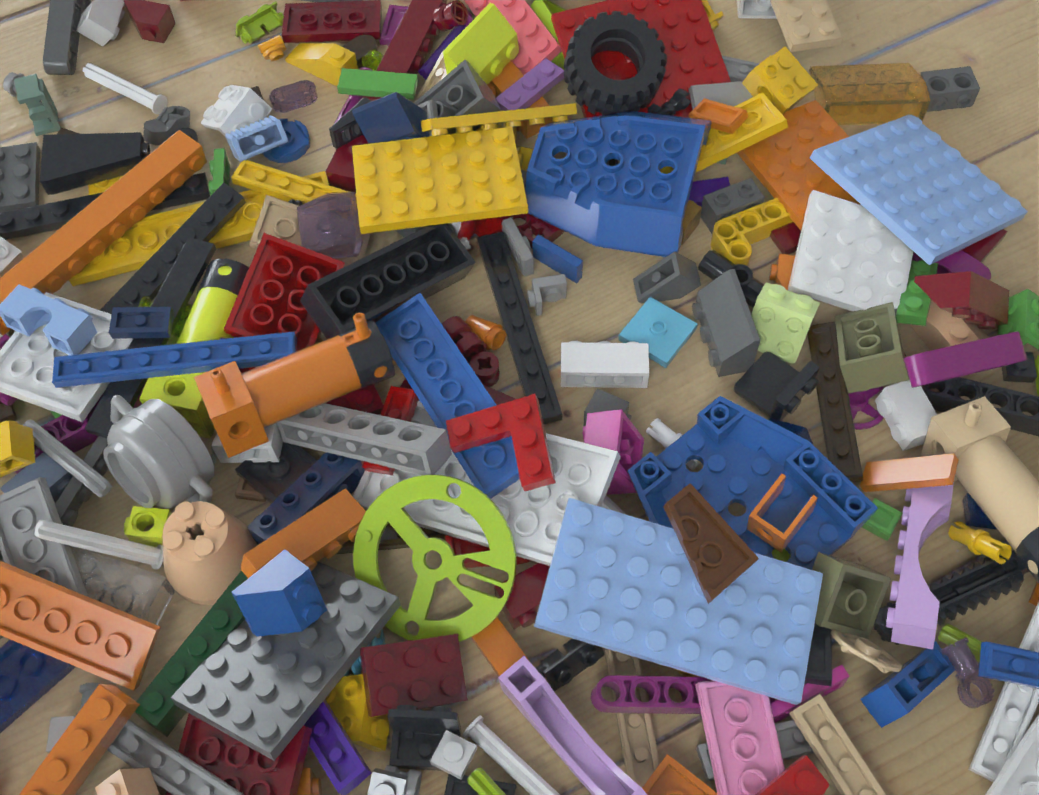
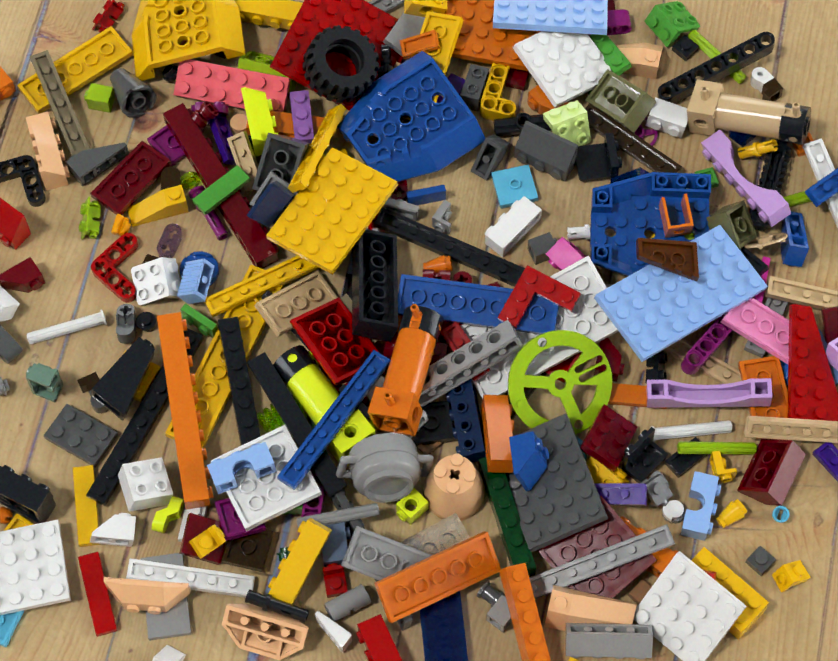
camera: 50 degrees left, 5 degrees up
(99, 543) = (429, 516): white axle -> none
(141, 322) = (290, 421): dark blue plate -> none
(223, 71) = (109, 266): none -> red beam
(331, 225) = (307, 286): clear purple slope -> none
(346, 128) = (243, 220): black slope -> none
(453, 754) = (661, 449): white plate -> none
(909, 473) = (700, 145): tile -> none
(964, 359) = (669, 68): magenta beam -> none
(967, 673) = (809, 210): clear purple connector -> none
(968, 297) = (639, 37): dark red slope -> none

